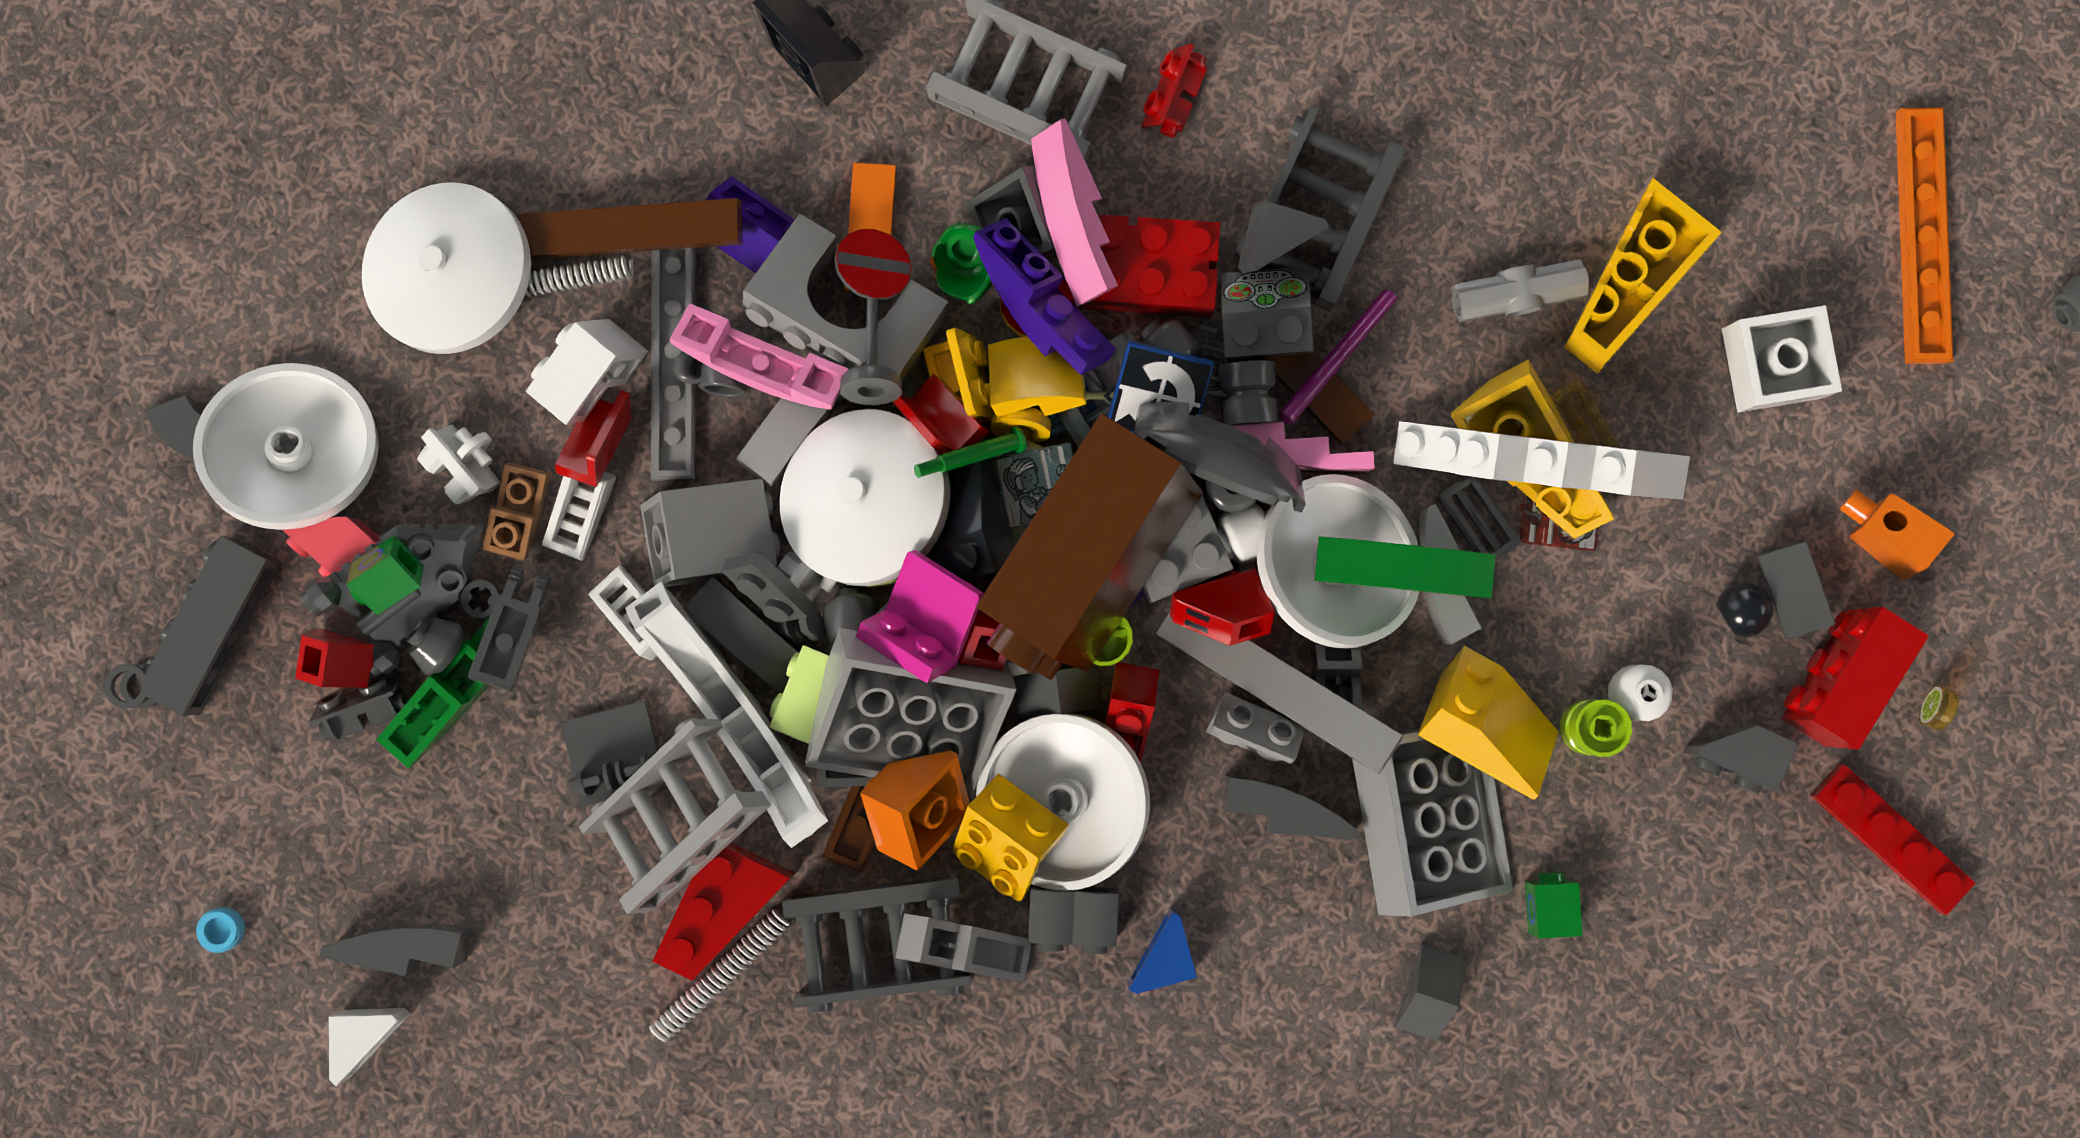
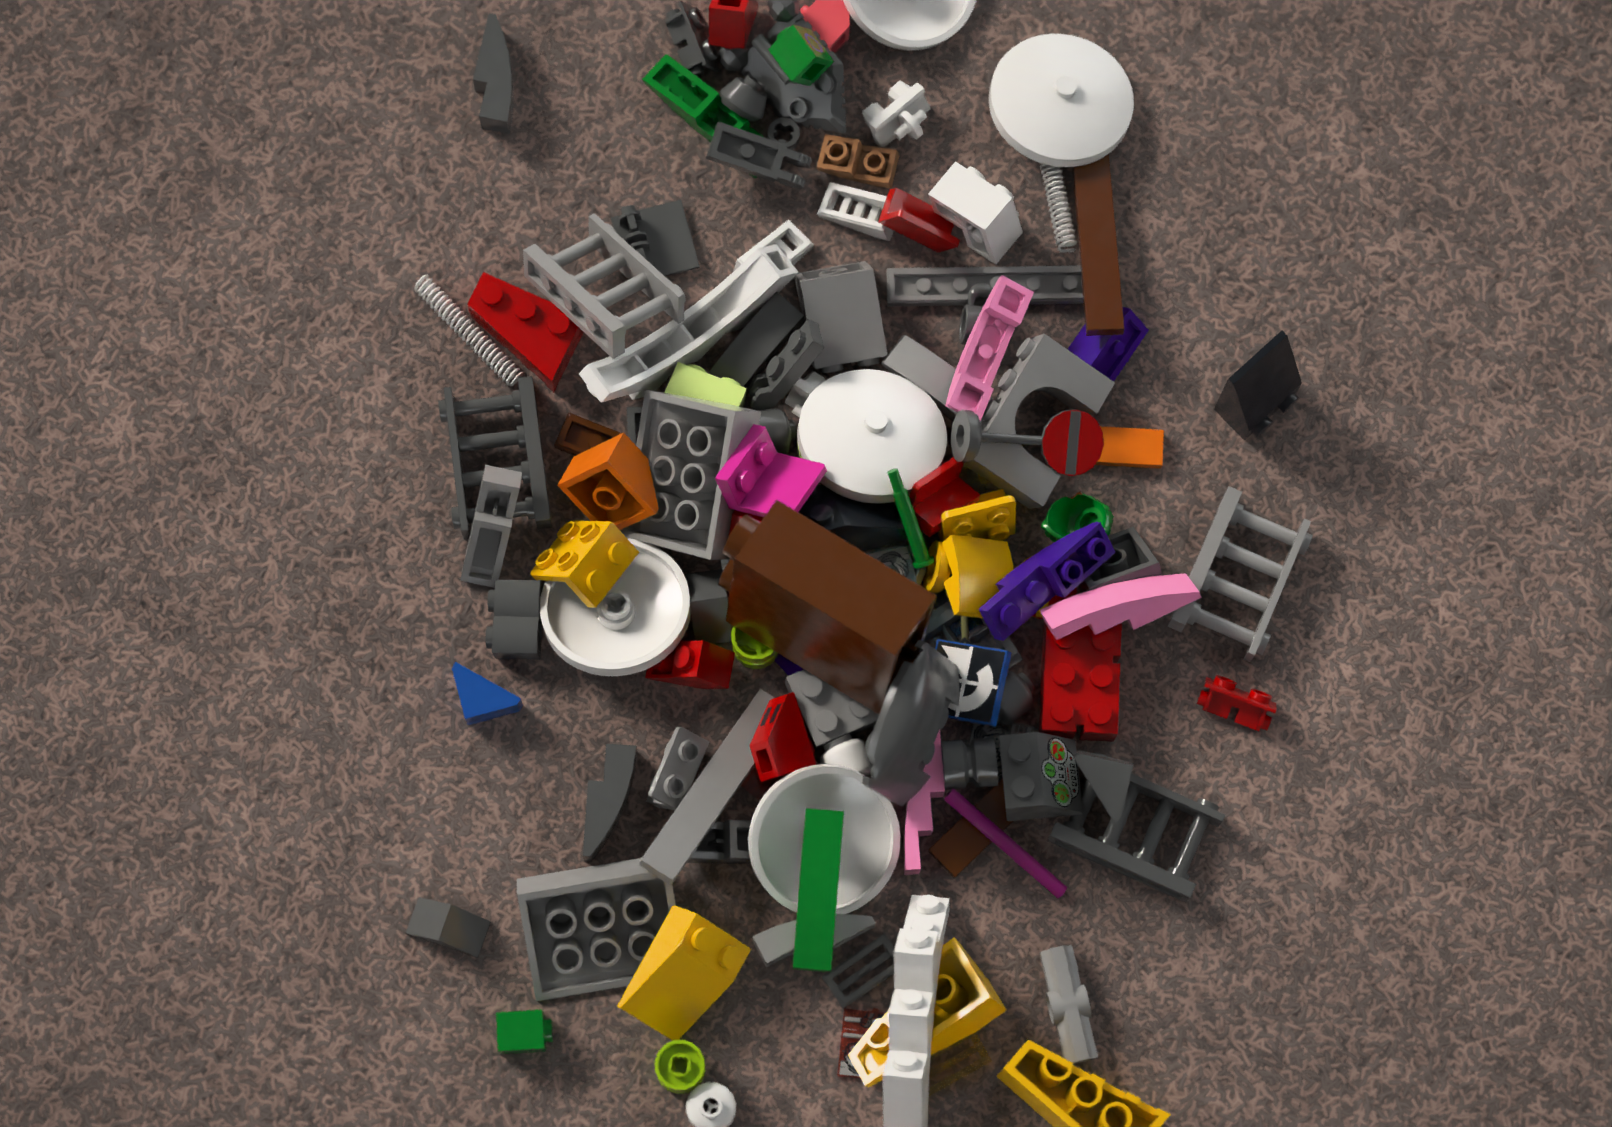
camera: 85 degrees right, 10 degrees down
(356, 1037) = (420, 45): white slope -> none

